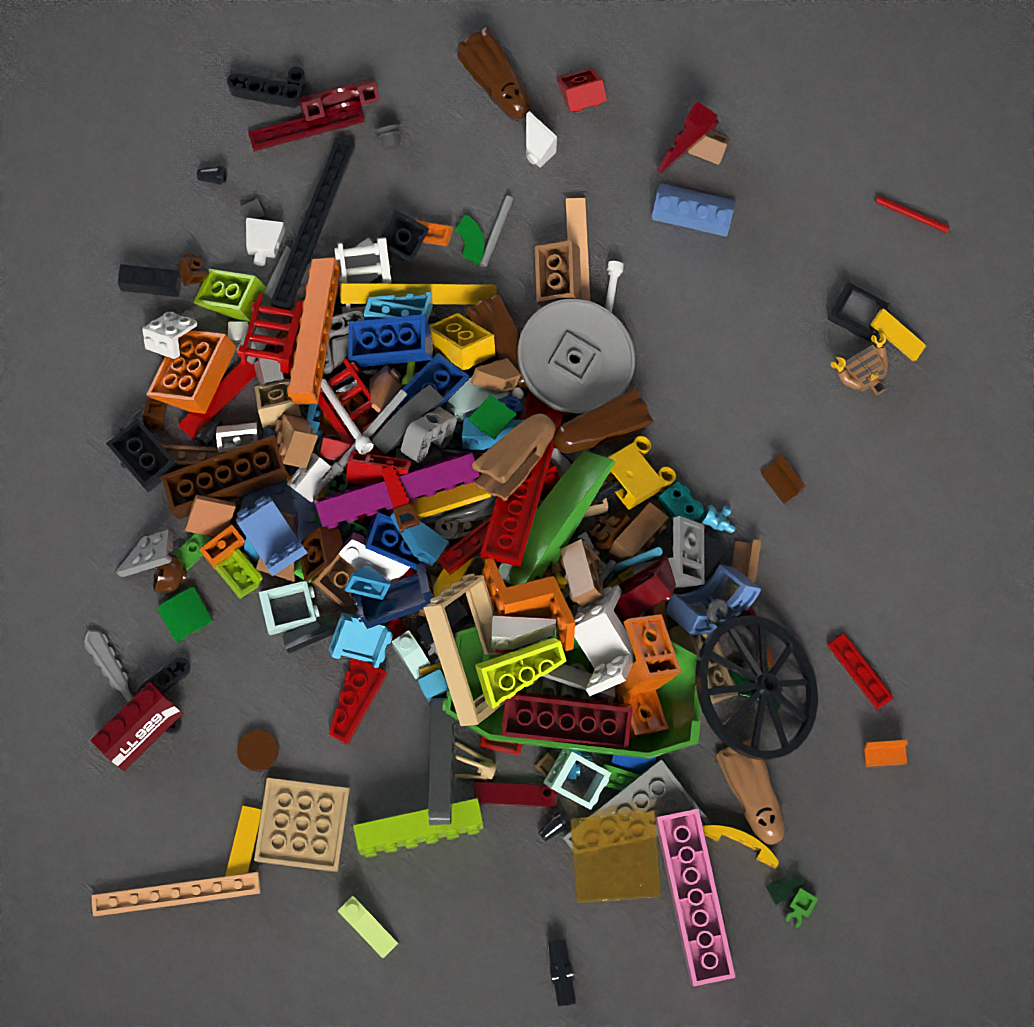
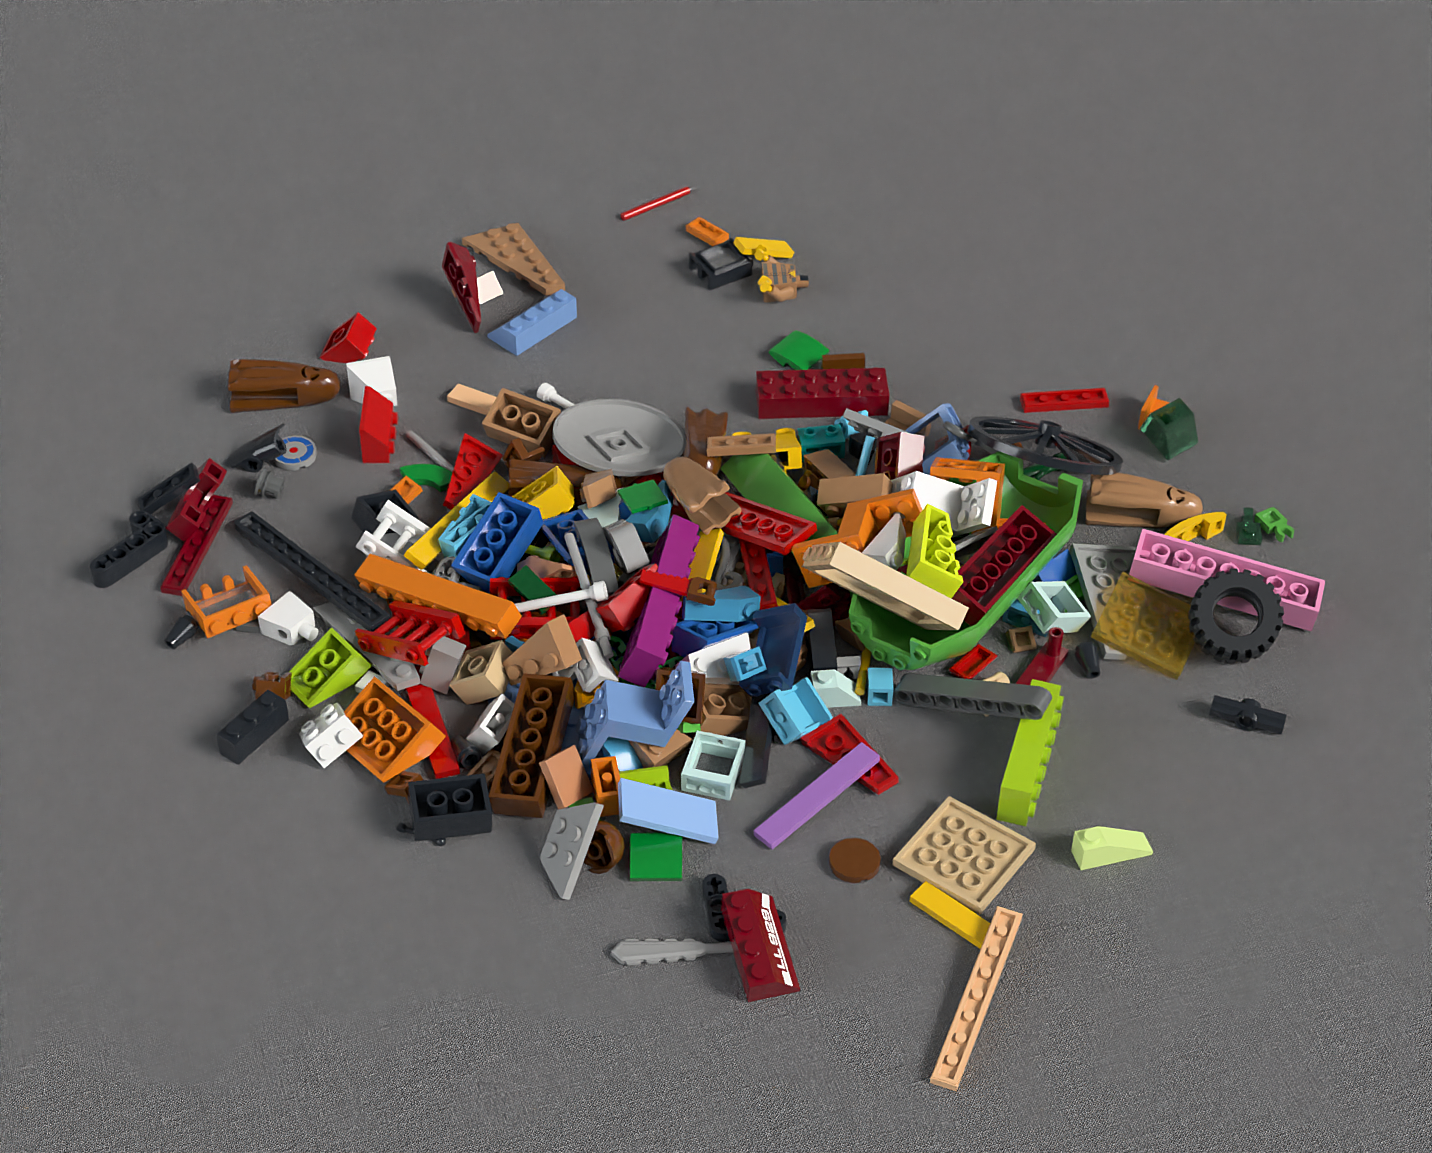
camera: 60 degrees left, 30 degrees down
(219, 601) = (667, 811): none -> light blue tile
(250, 188) = (228, 607): none -> orange window
(299, 695) = (816, 795): none -> medium lavender tile
(337, 74) = (169, 489): none -> black tile
(353, 394) = (530, 586): none -> dark green tile
(418, 105) = (261, 449): none -> black panel
(438, 129) = (299, 453): none -> light grey tile
(490, 267) = (471, 468): none -> red wing
(491, 172) = (377, 427): none -> red slope
(513, 297) = (517, 451): none -> reddish brown panel
(593, 458) = (741, 445): none -> medium nougat tile
(620, 928) = (1257, 594): none -> black tyre
(740, 477) = (821, 392): none -> dark red brick
(771, 143) = (515, 252): none -> medium nougat wing
(786, 431) = (798, 351): none -> green slope
(862, 777) = (1171, 429): none -> clear green slope
(897, 277) = (707, 231): none -> orange plate

